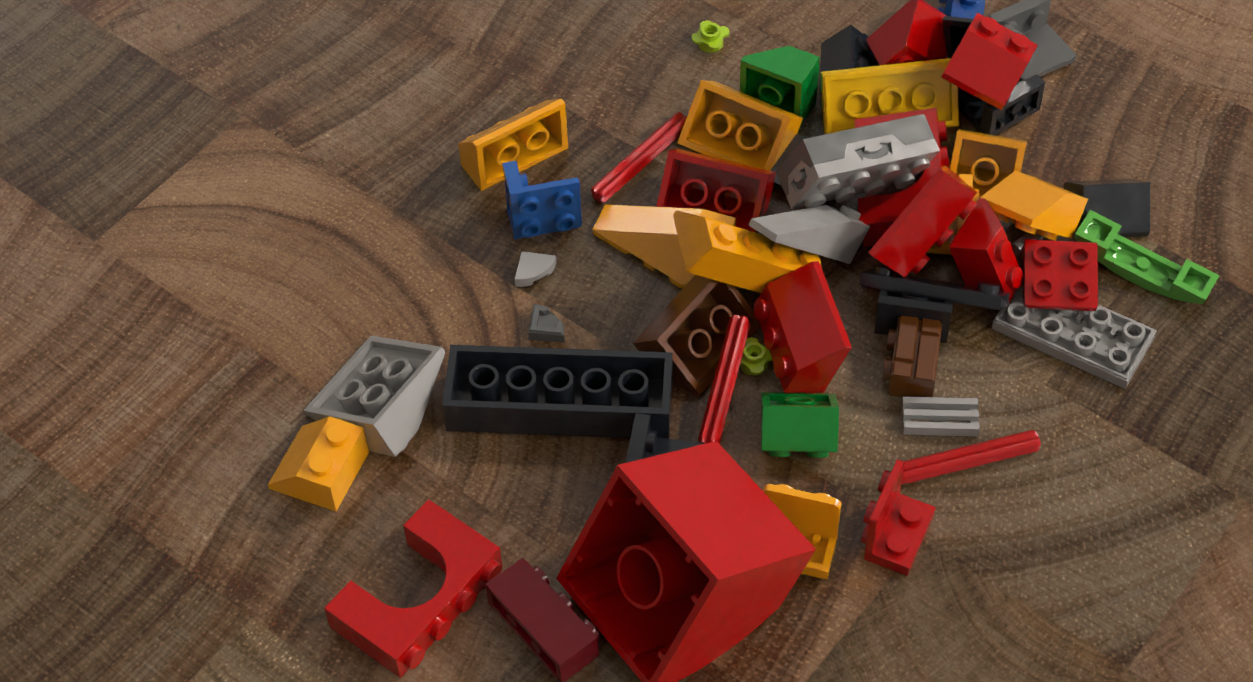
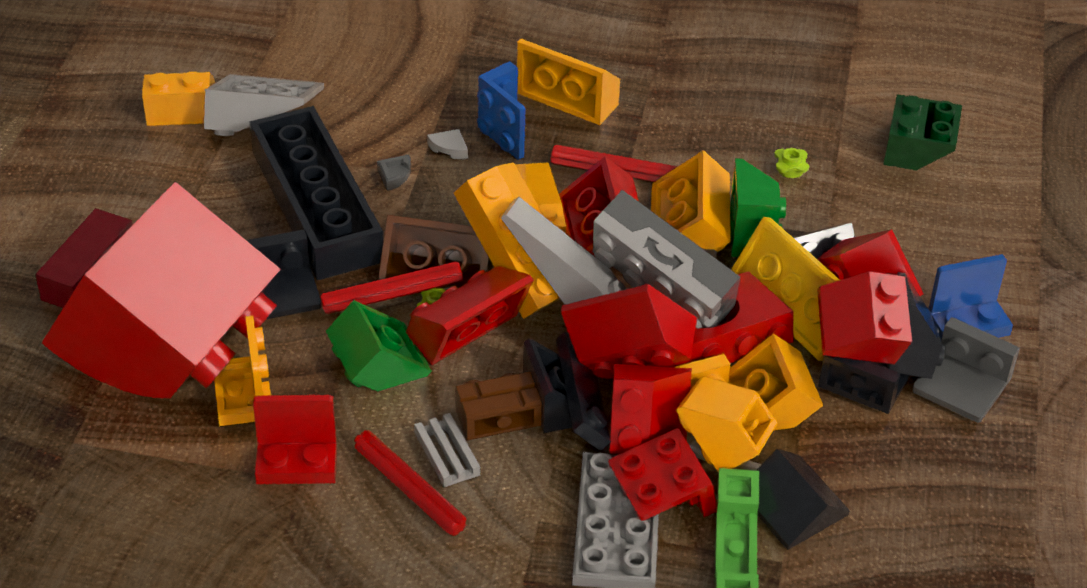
camera: 60 degrees right, 10 degrees down
(402, 635) = (36, 187): red arch -> none

